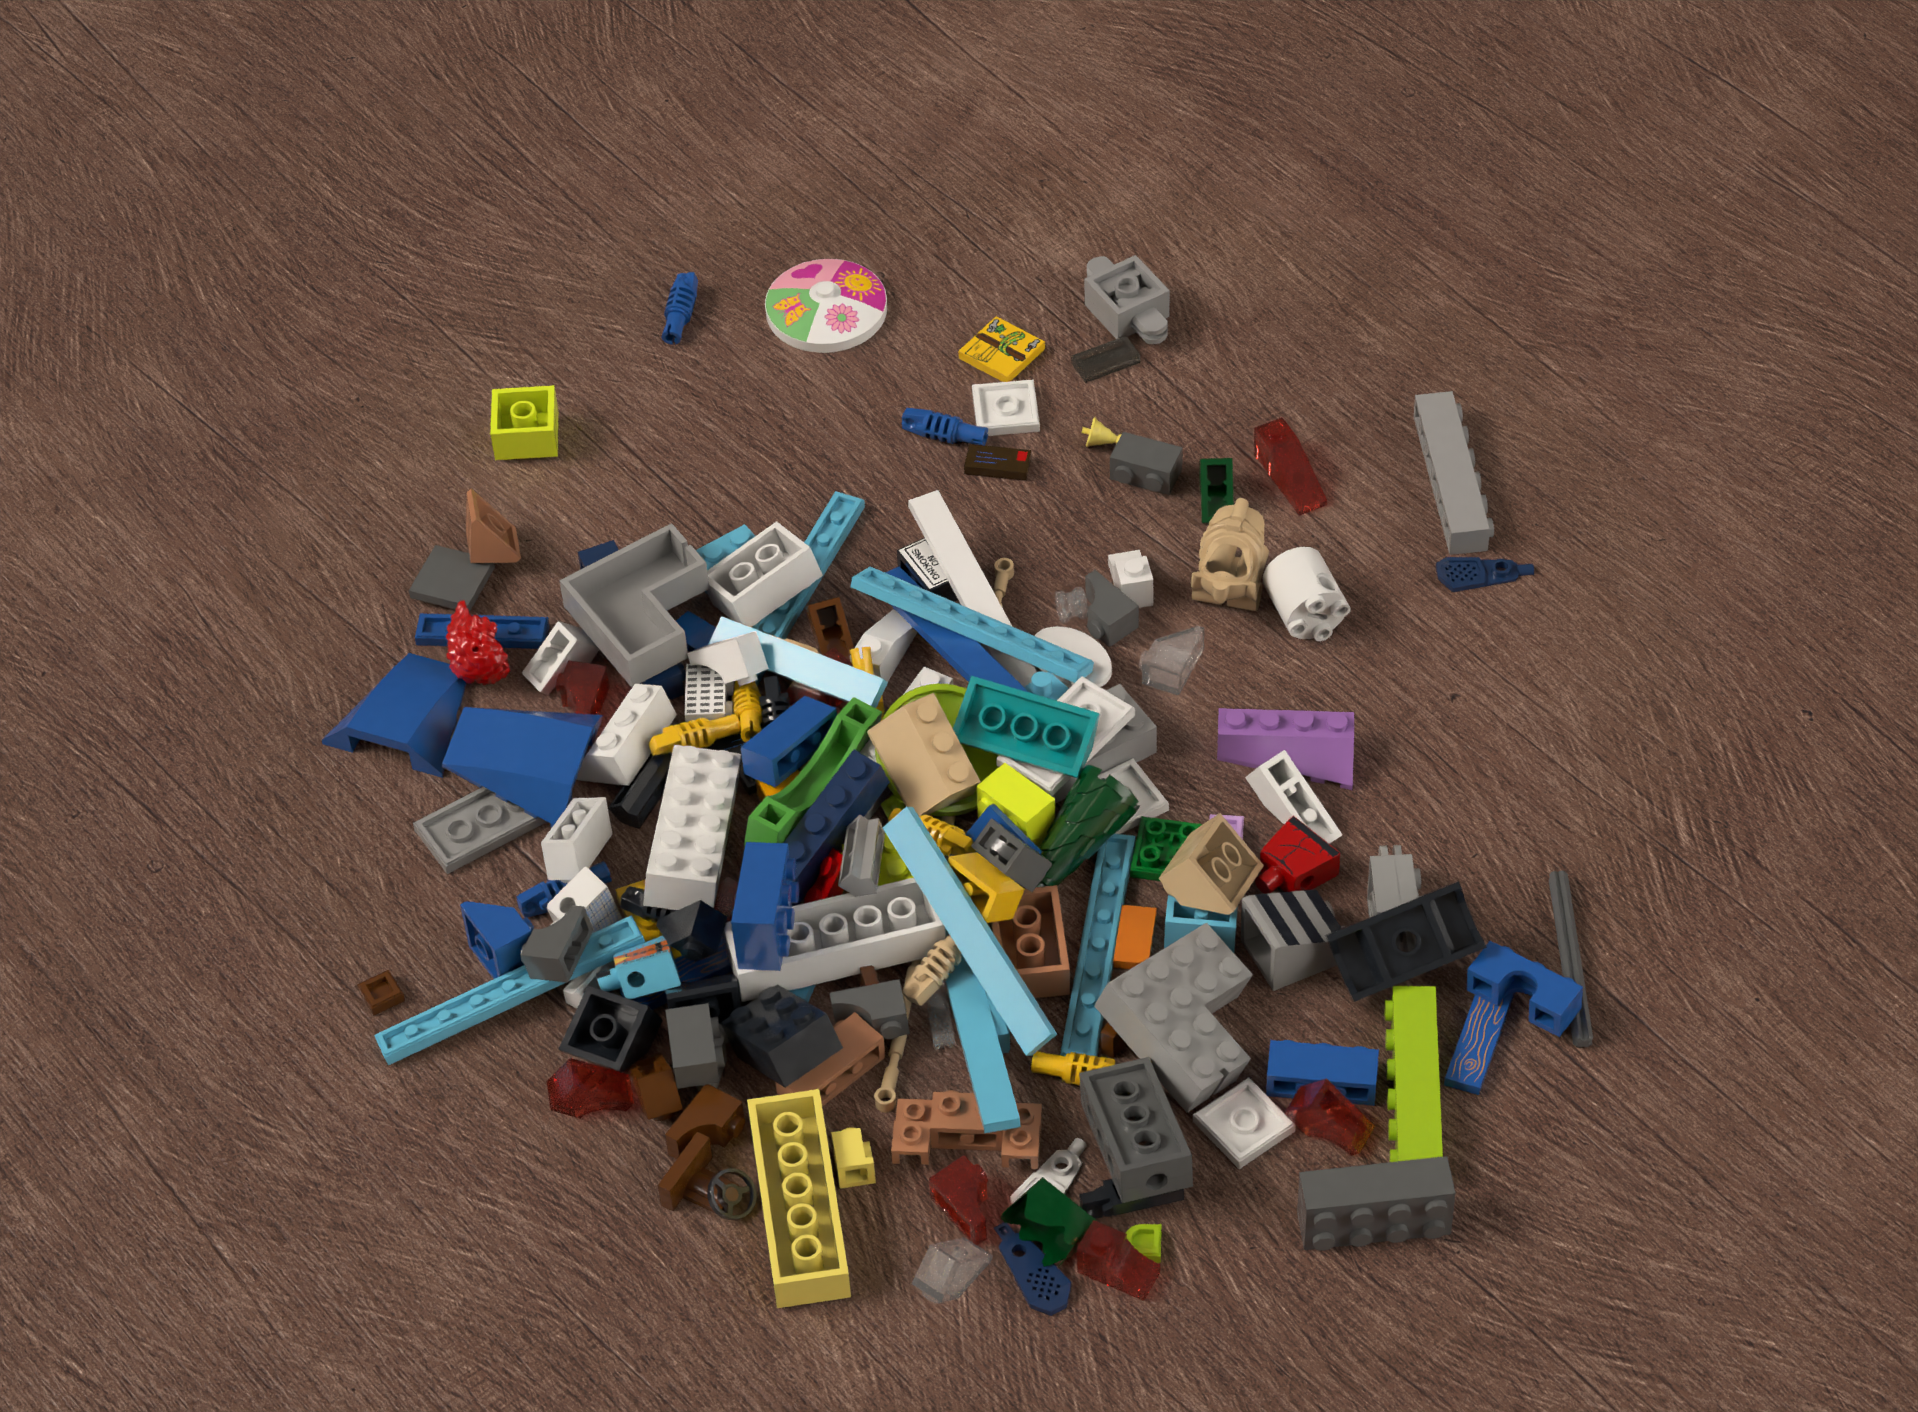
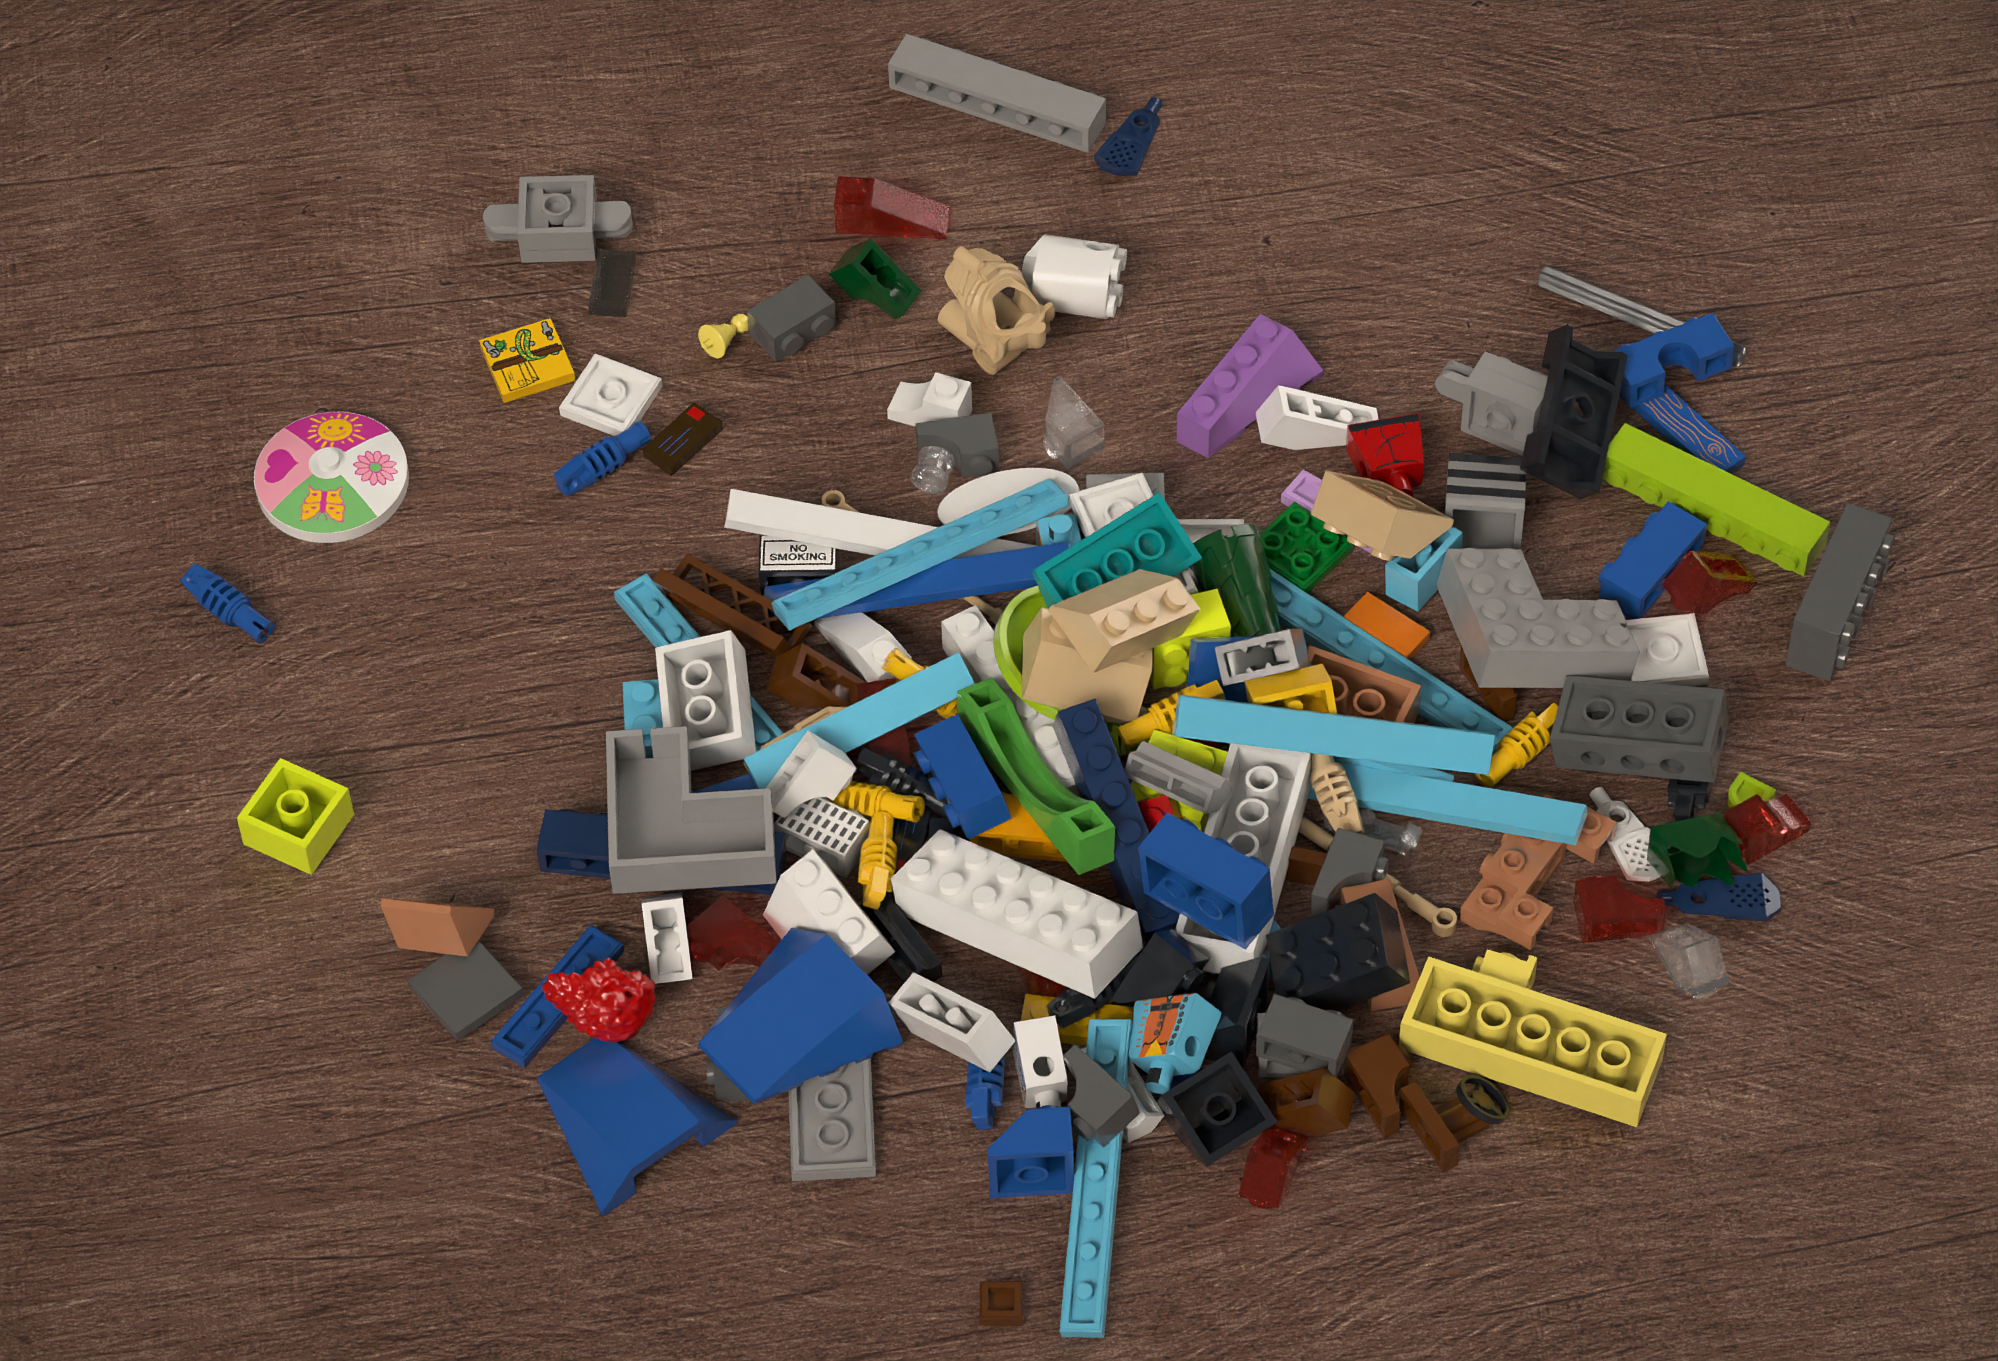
camera: 60 degrees left, 5 degrees up
(852, 555) = (727, 616): none -> reddish brown fence
(963, 745) = (1125, 617): none -> tan slope

